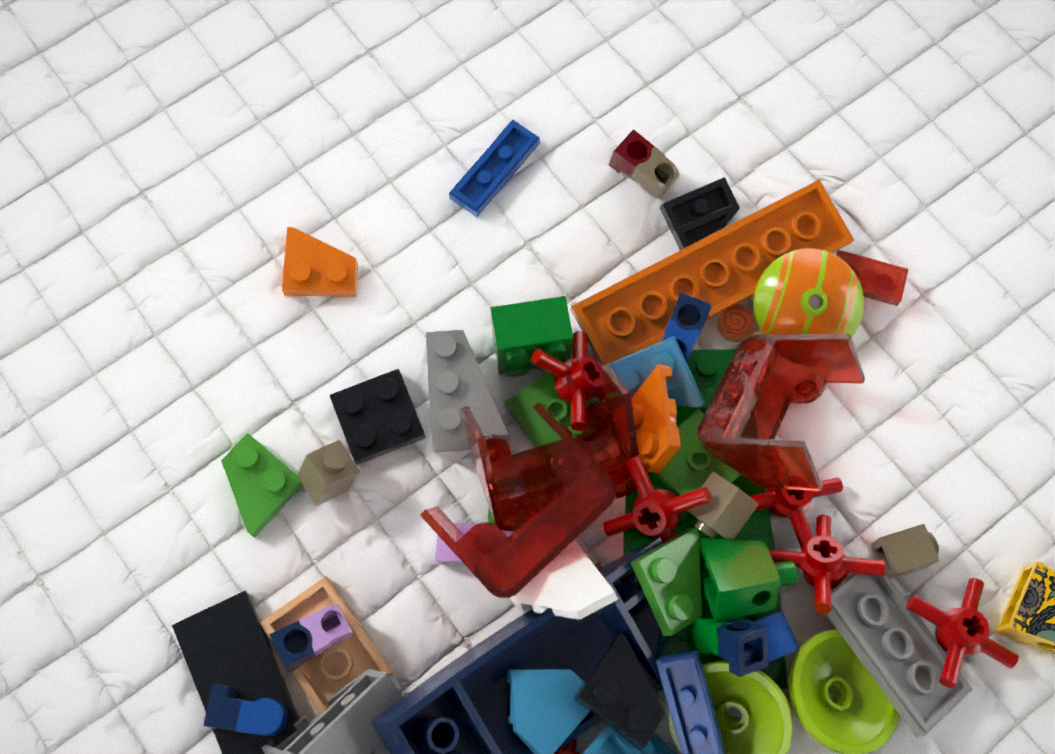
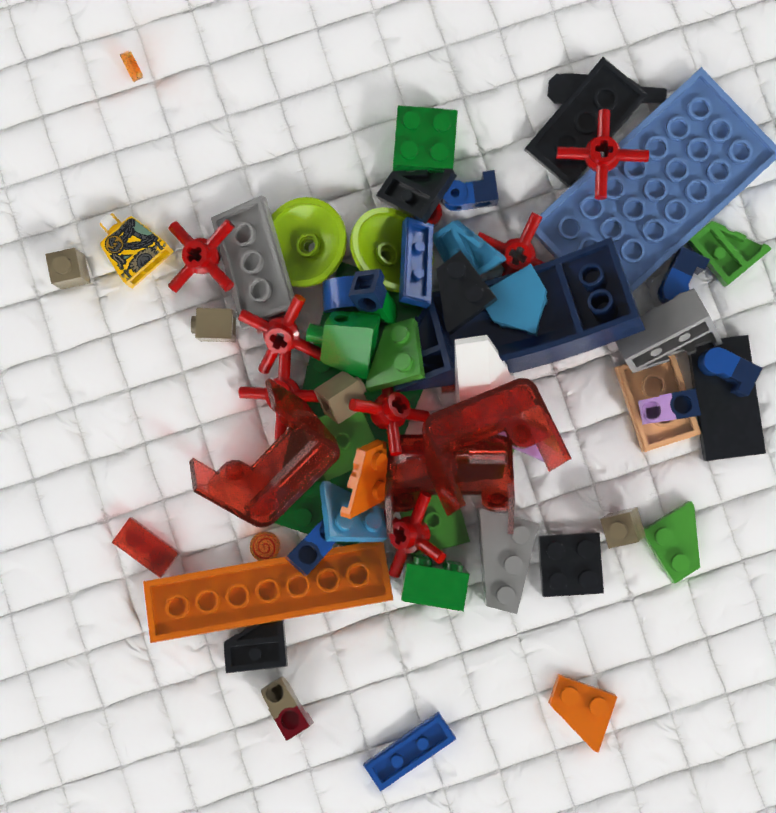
camera: 160 degrees left, 15 degrees up
(790, 281) = (205, 560): orange dish -> none

